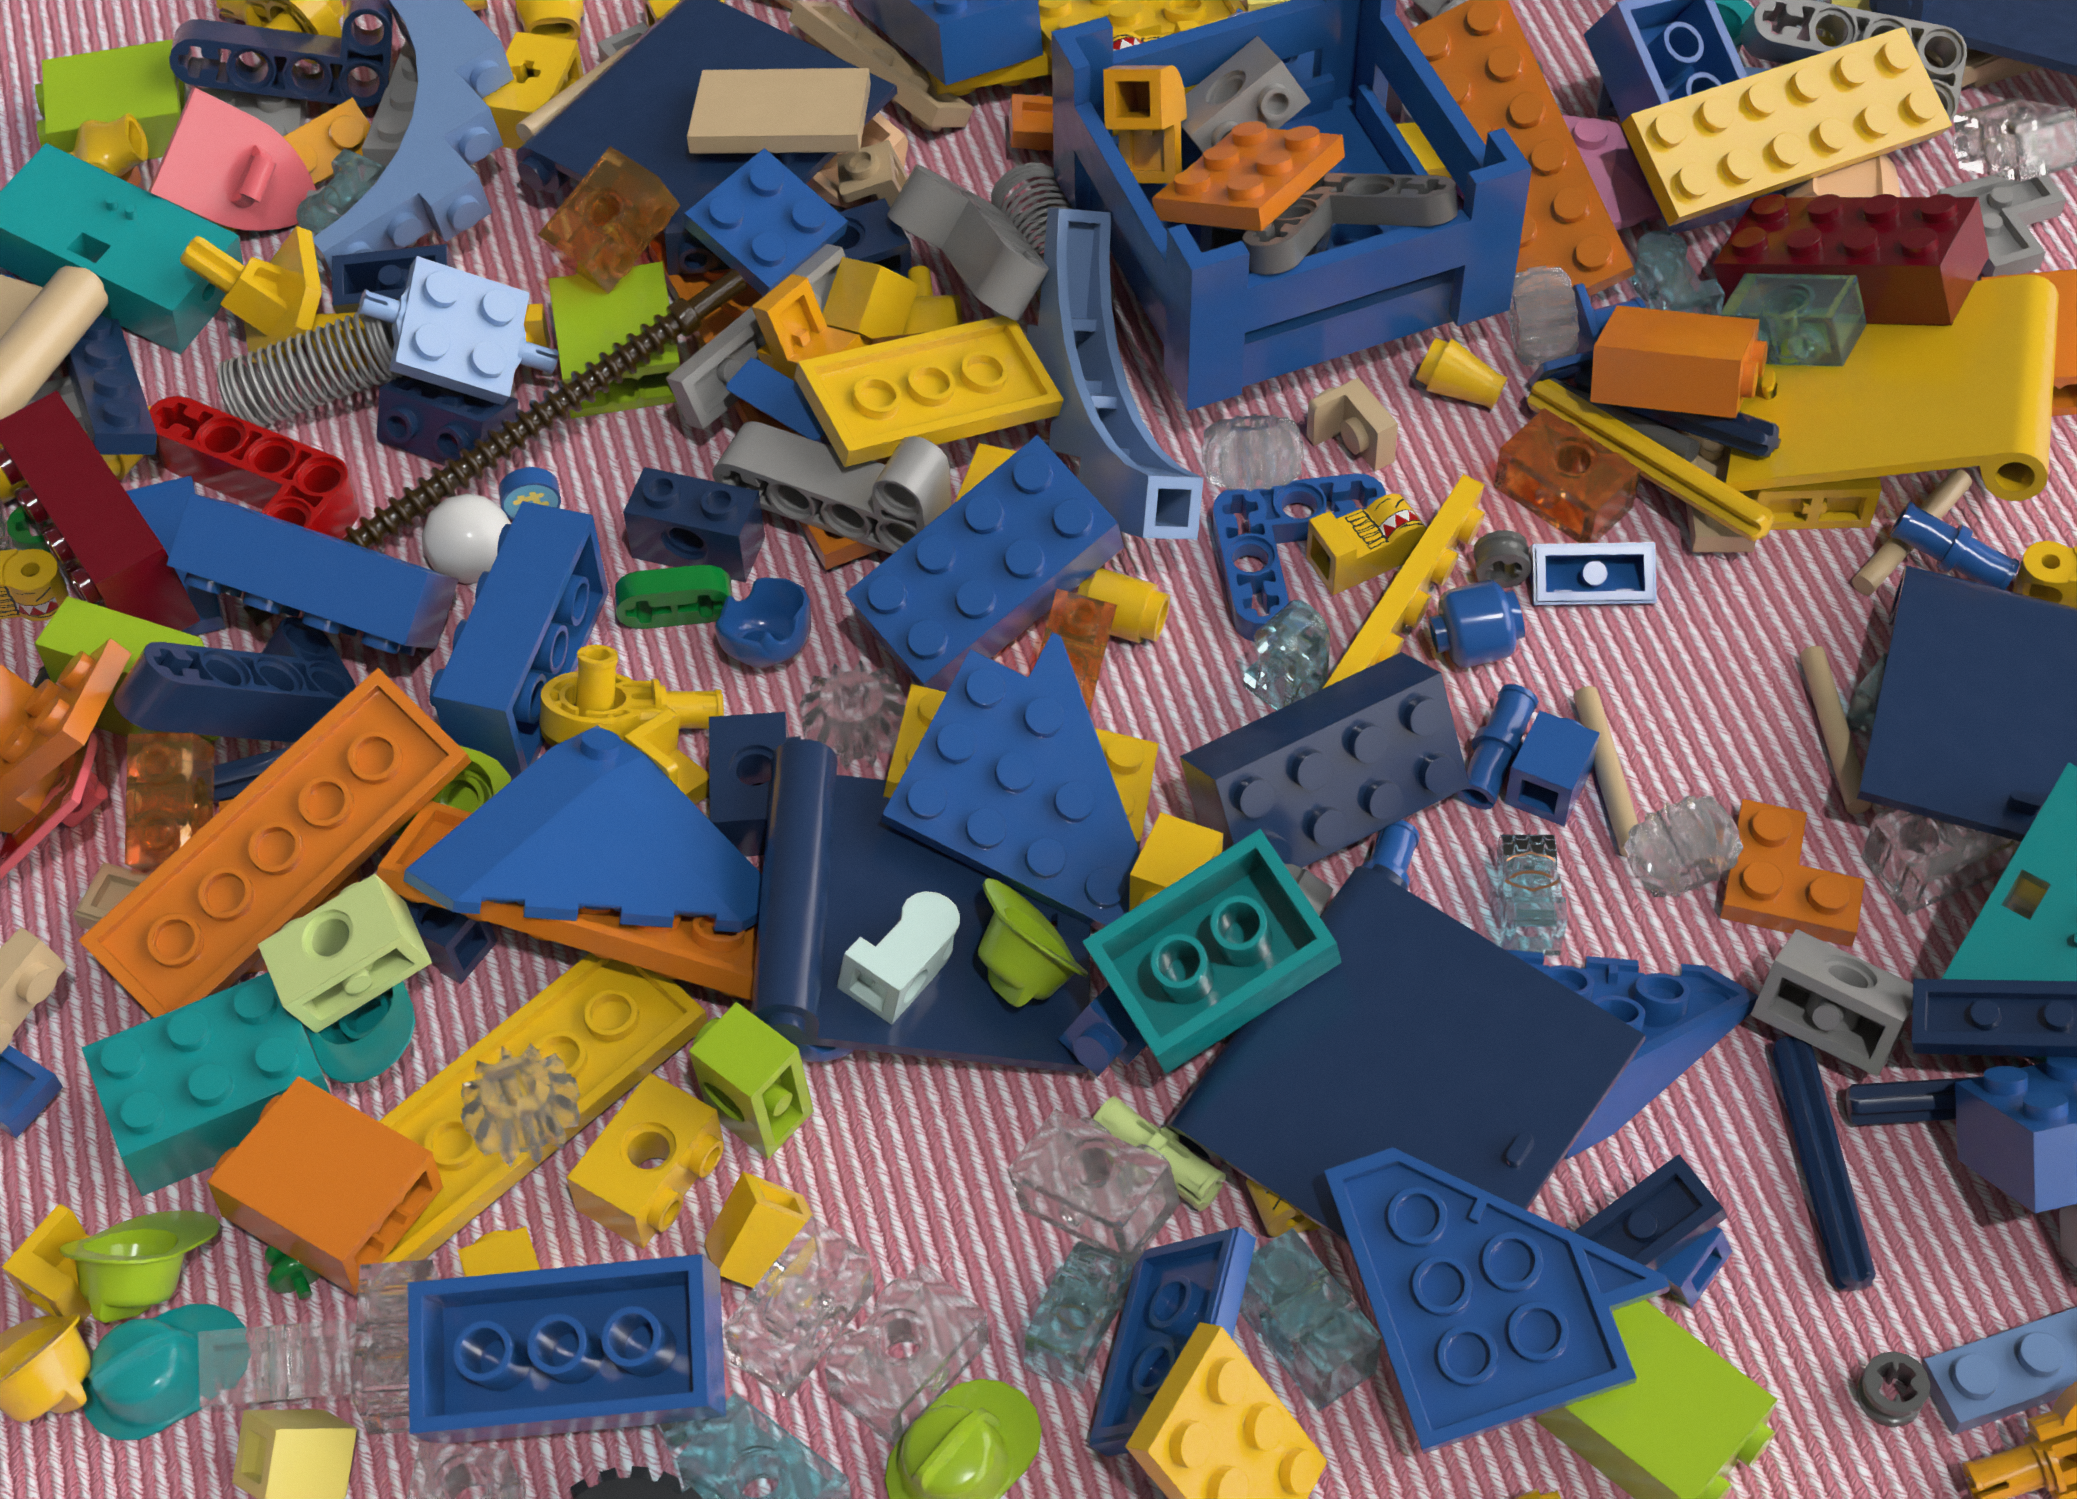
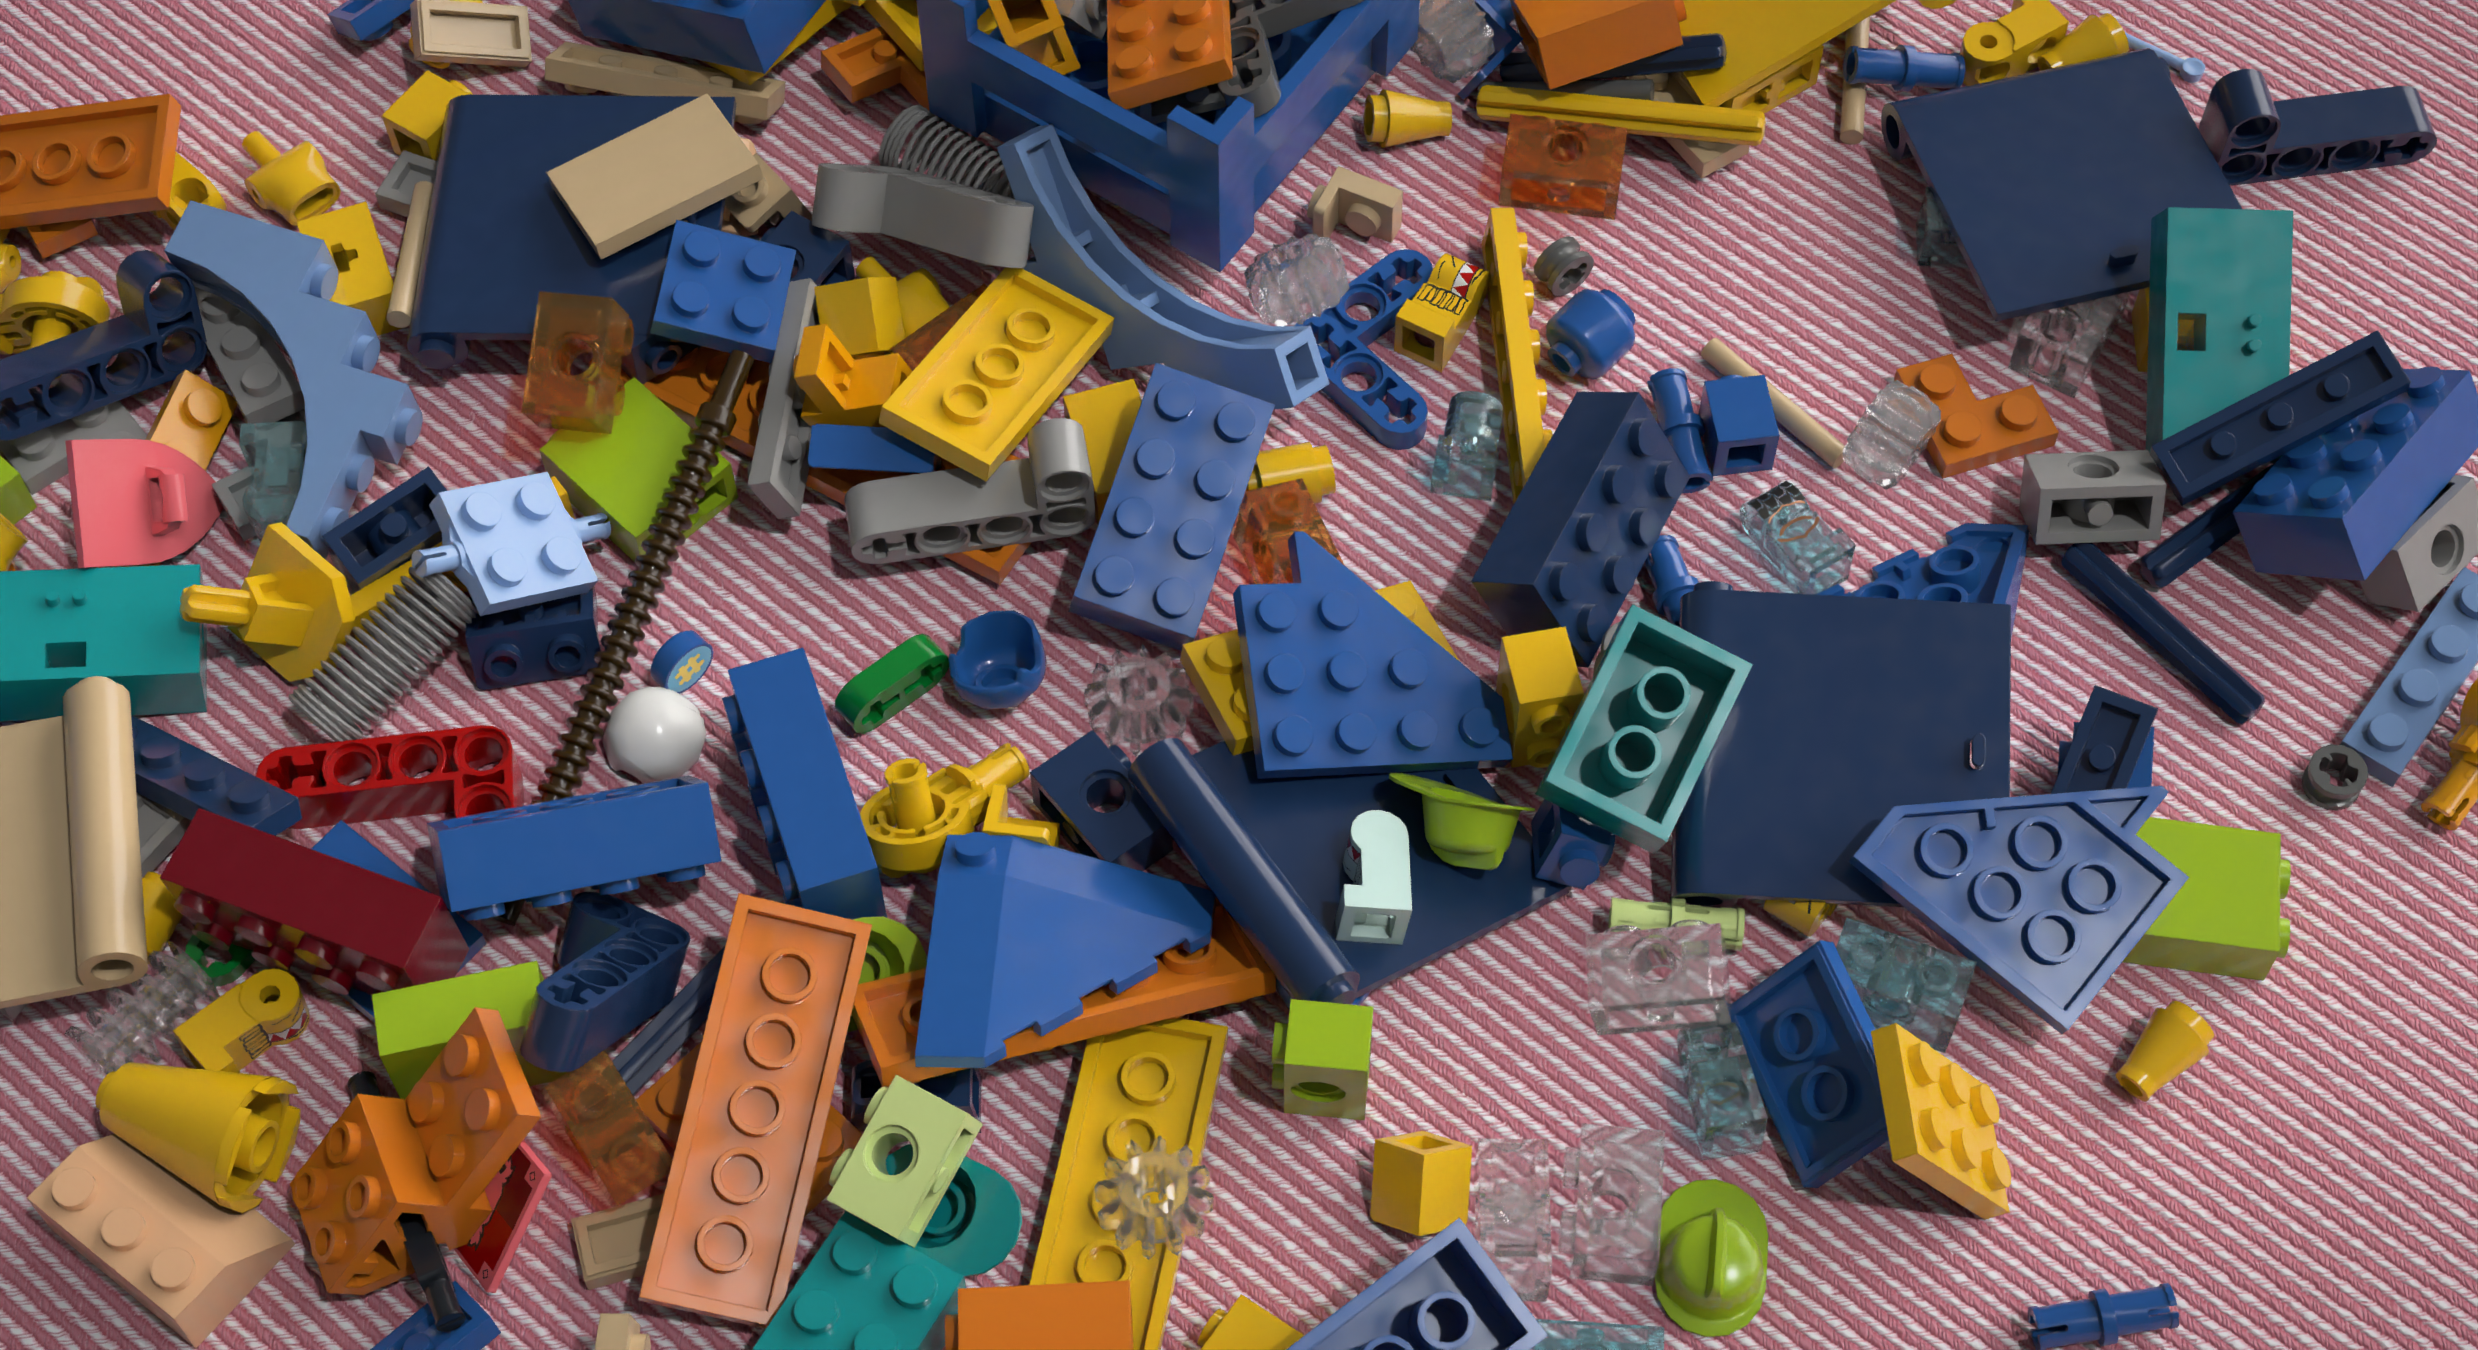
camera: 35 degrees left, 5 degrees up
(651, 1124) = (1275, 1219): yellow brick -> none
(694, 522) = (860, 606): dark blue brick -> none
(1593, 574) = (1641, 239): slope -> none
(1834, 727) = (1918, 271): tan bar -> none

